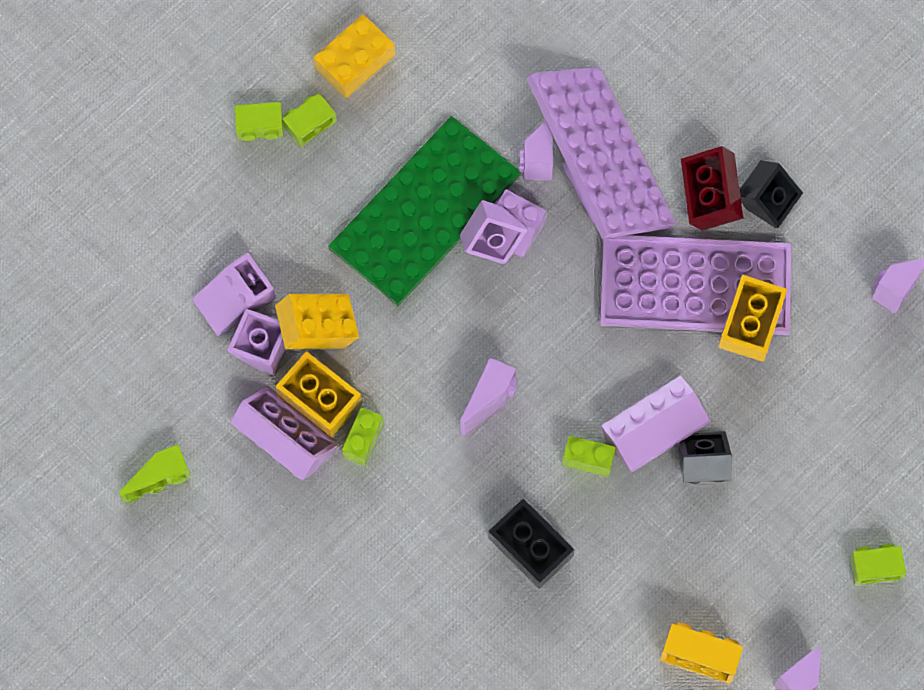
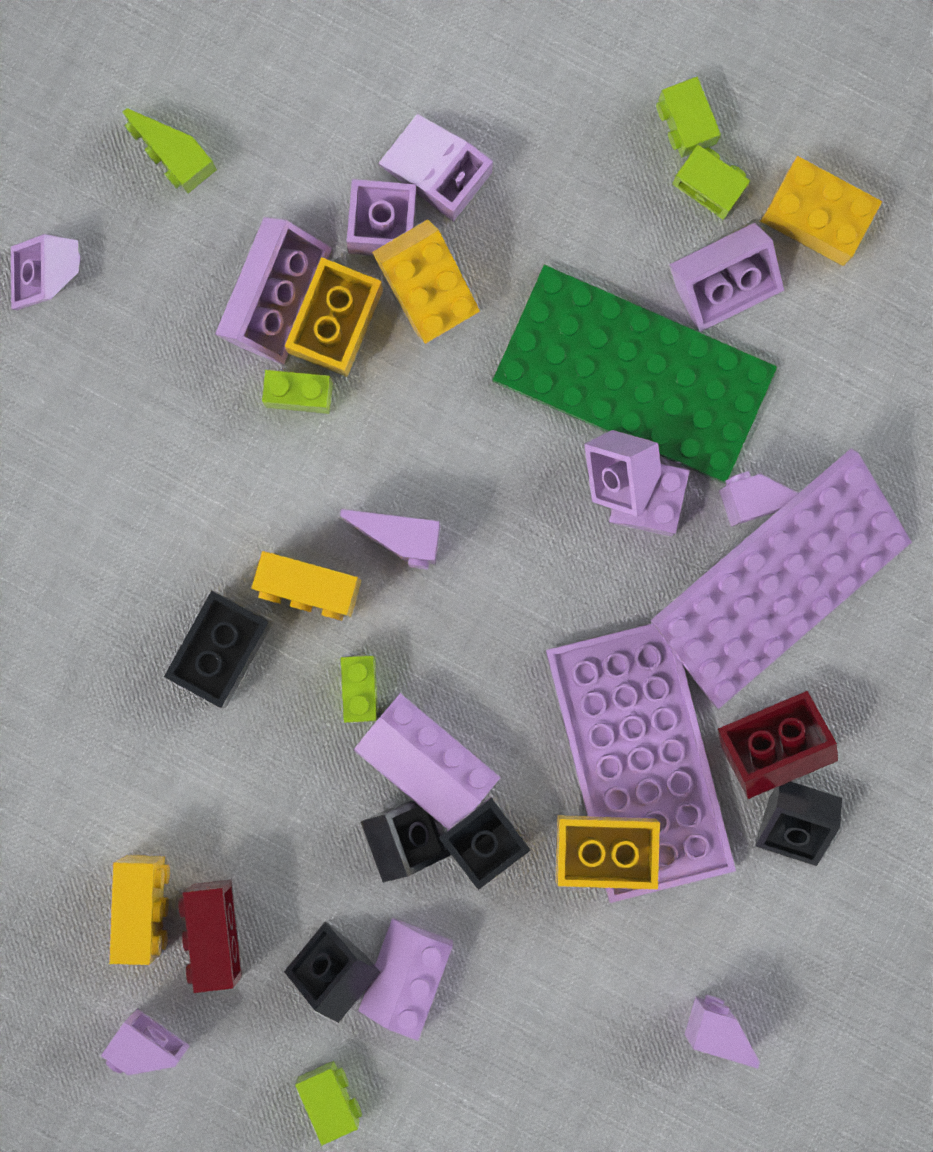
camera: 70 degrees right, 15 degrees up
(213, 592) = (41, 269): none -> lavender slope
(378, 128) = (728, 276): none -> lavender slope
(504, 467) = (306, 585): none -> yellow brick
(724, 400) = (484, 843): none -> black slope
(735, 606) = (211, 936): none -> dark red brick
(785, 535) = (331, 972): none -> black slope
(804, 485) = (408, 978): none -> lavender slope

